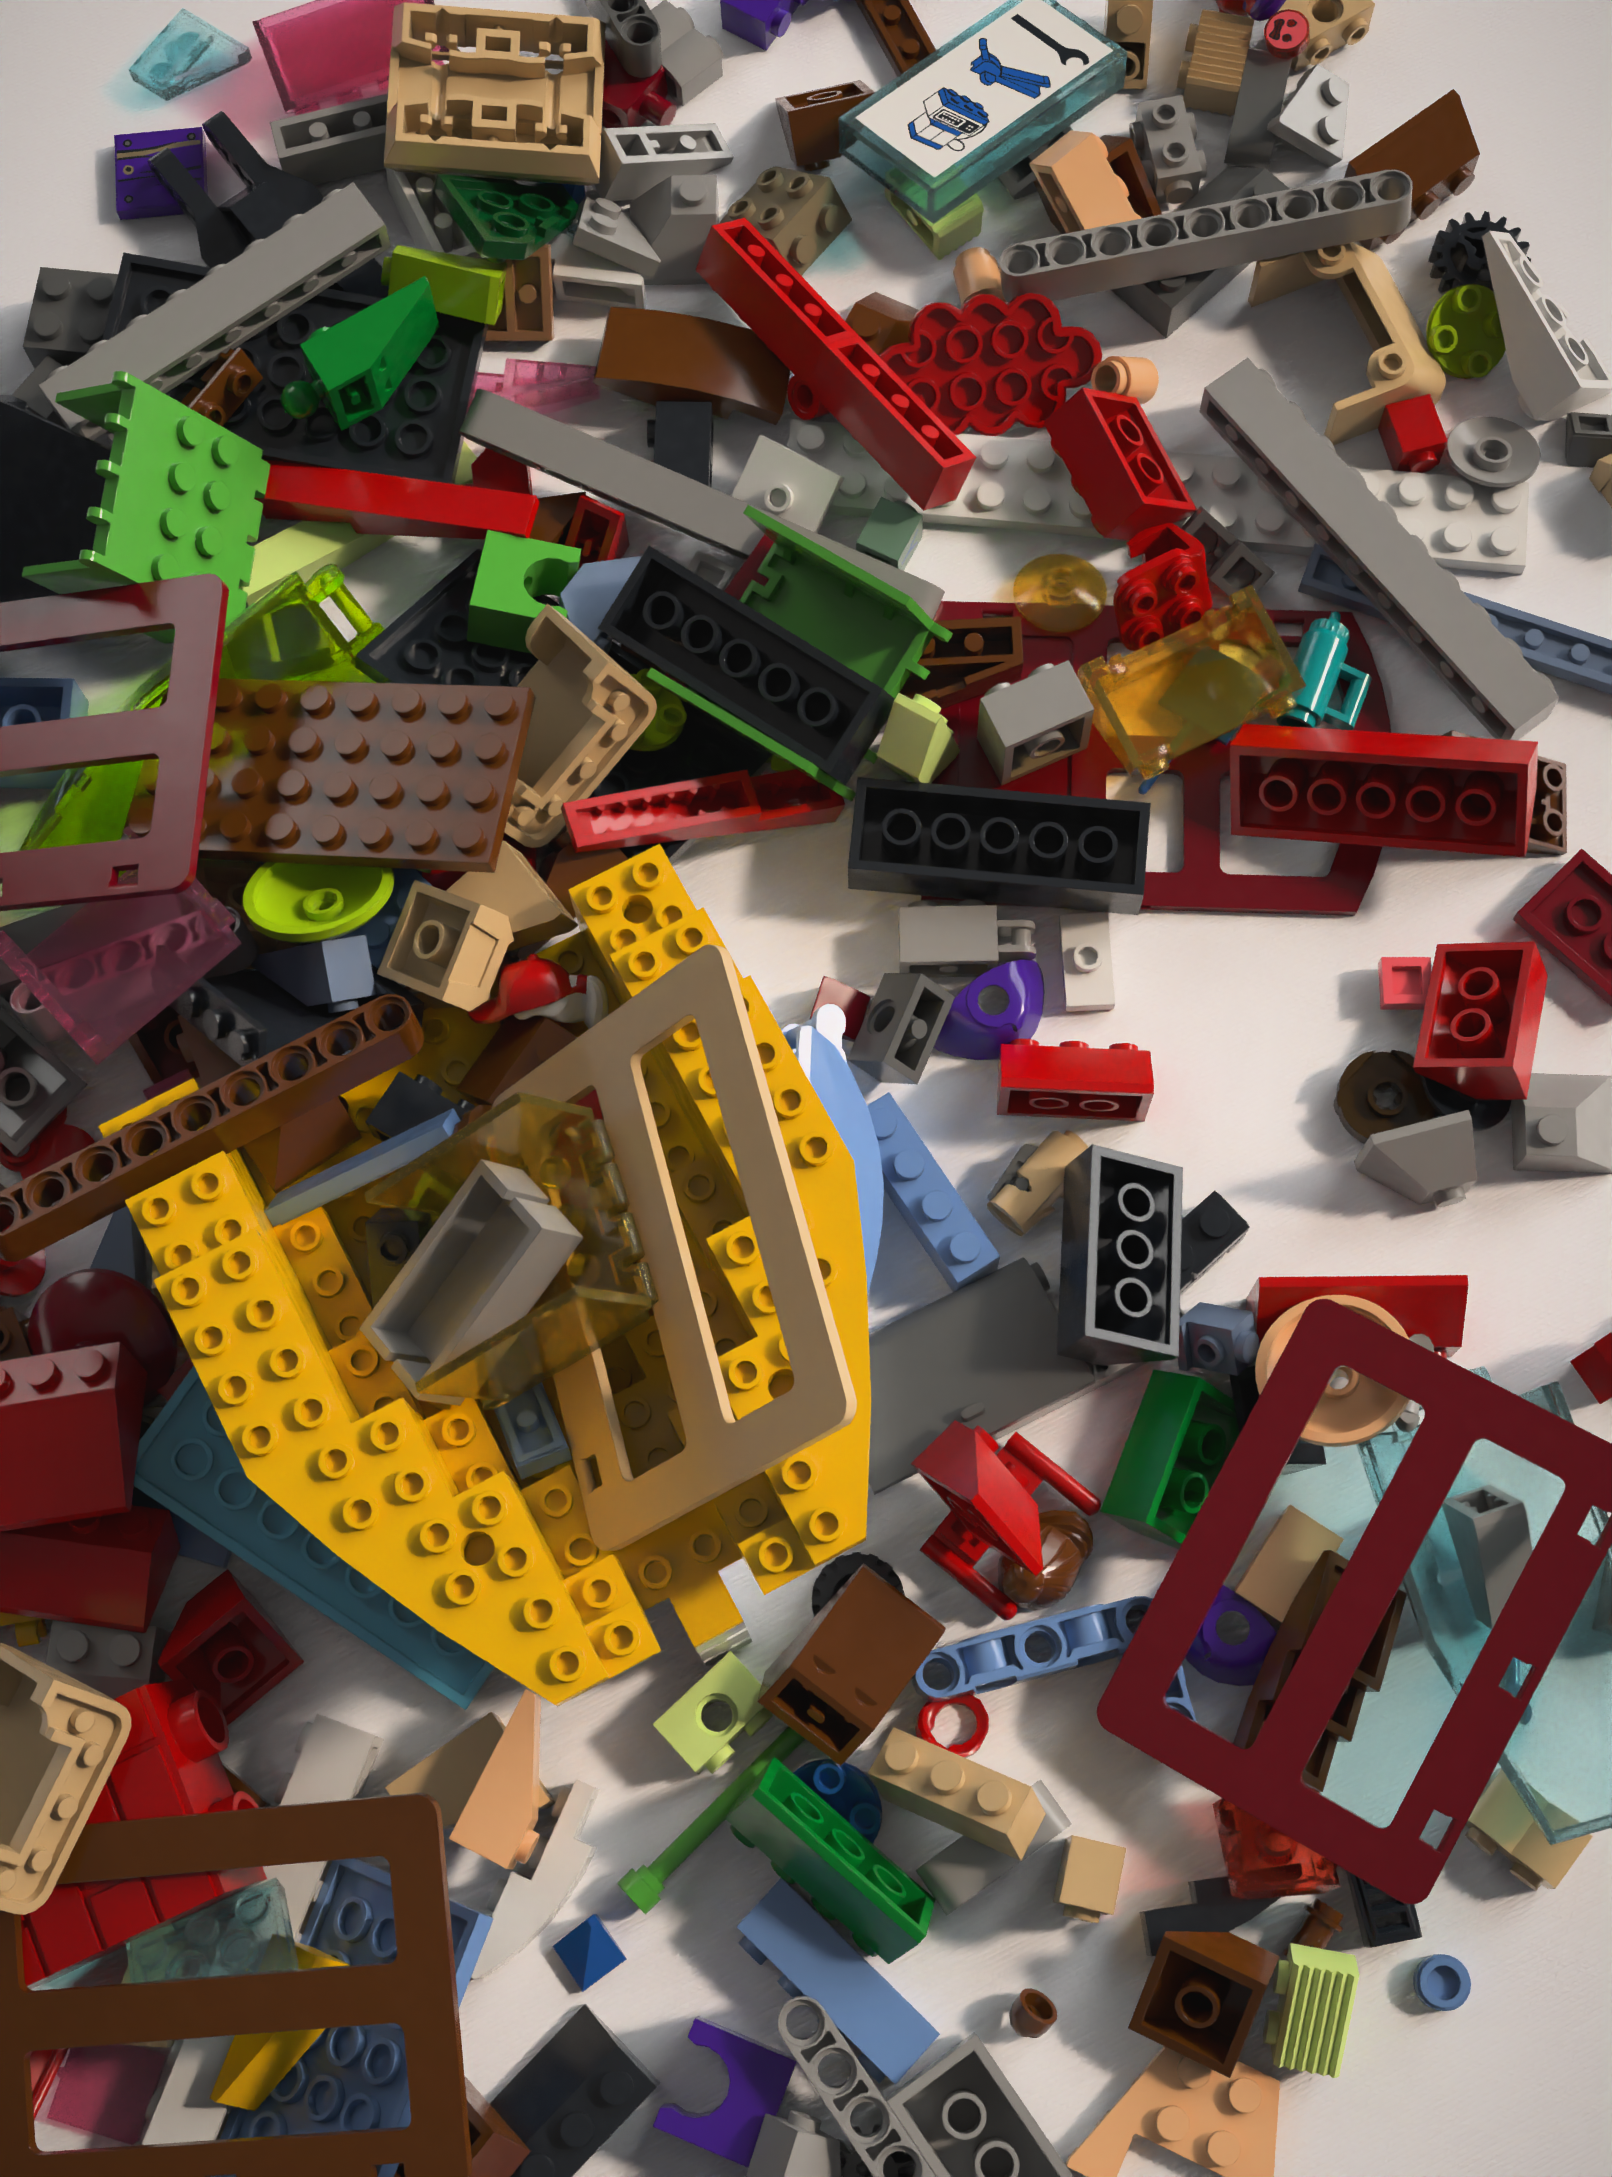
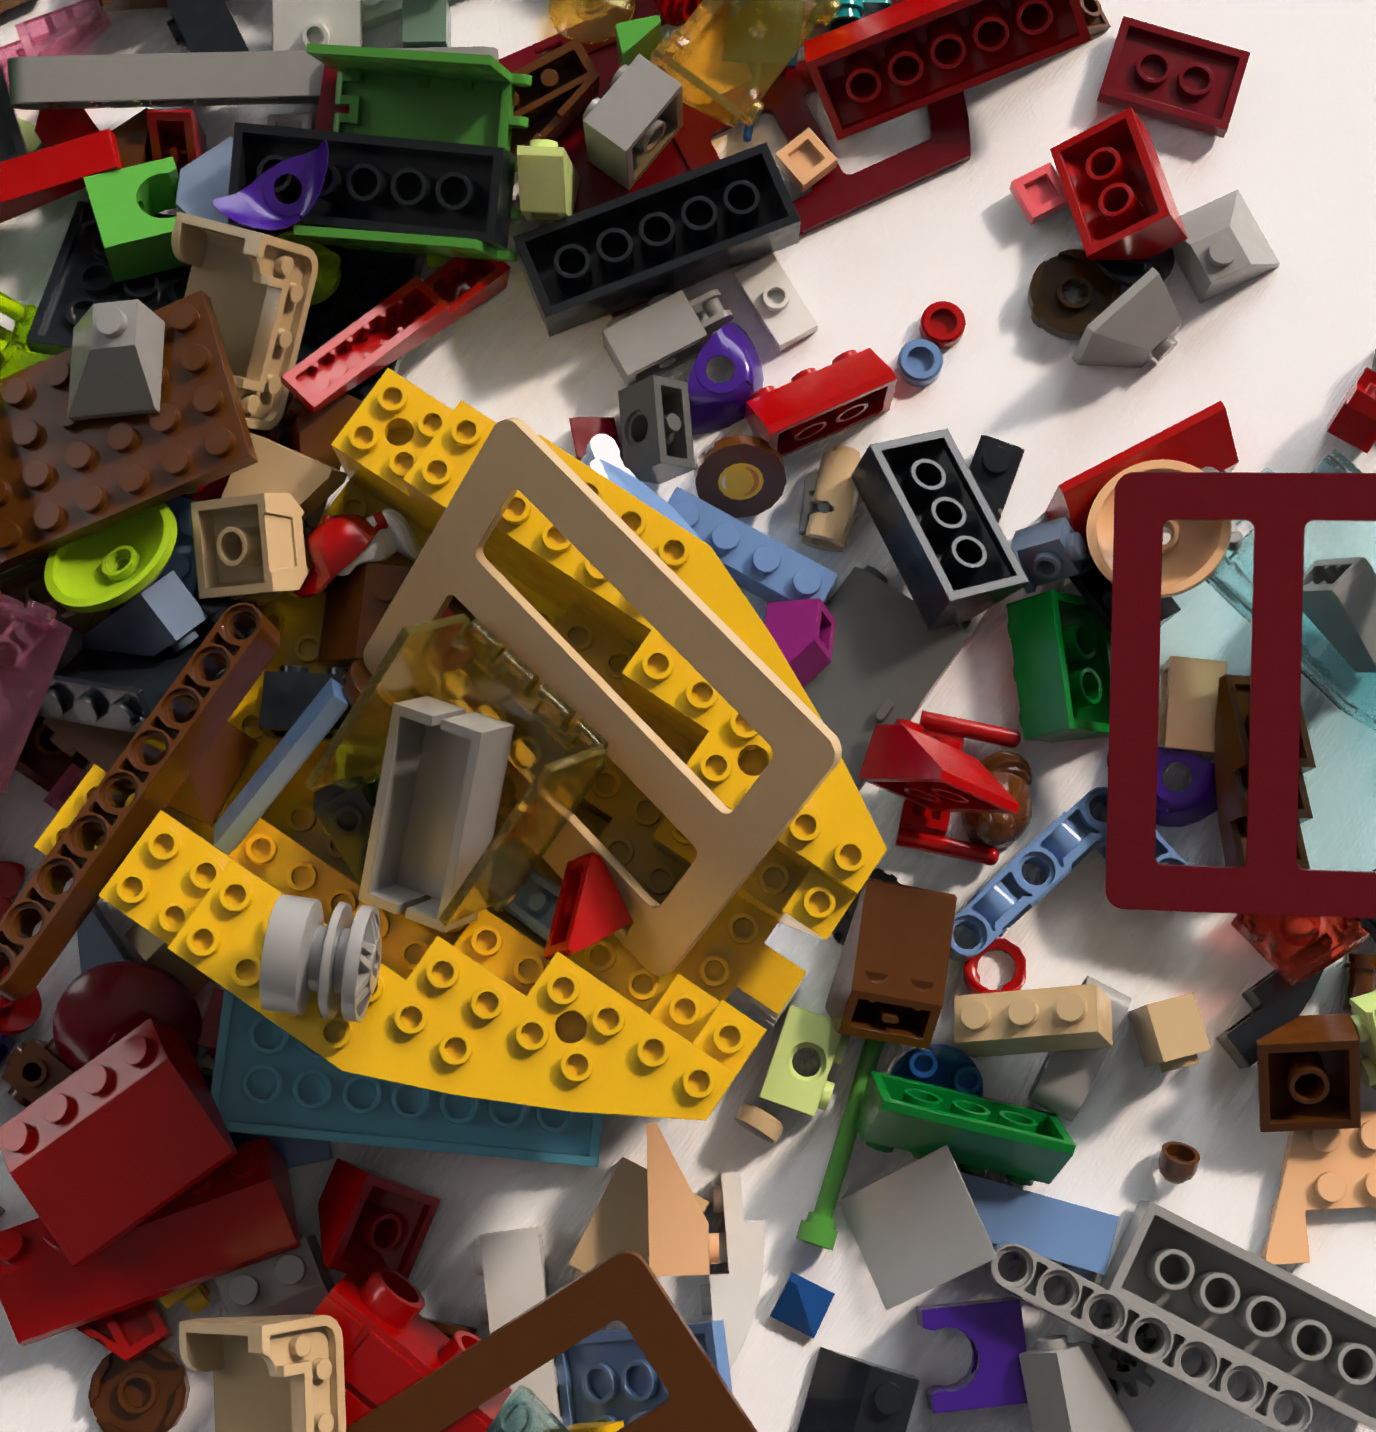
camera: 30 degrees left, 5 degrees up
(276, 1360) = (309, 957): none -> light grey wheel
(416, 717) = (116, 361): none -> light grey slope
(563, 1447) = (586, 907): none -> red slope
(630, 637) = (257, 204): none -> dark purple piece
(642, 1751) = (759, 1122): none -> tan tile
(735, 1936) = (917, 1228): none -> white sticker
(918, 1304) = (803, 634): none -> magenta slope
(957, 1113) = (740, 475): none -> reddish brown tile
(1078, 645) = (637, 37): none -> bright green slope
(1187, 838) = (805, 160): none -> light nougat plate
(1197, 1090) = (919, 362): none -> medium blue tile
(1240, 1064) = (942, 324): none -> red tile

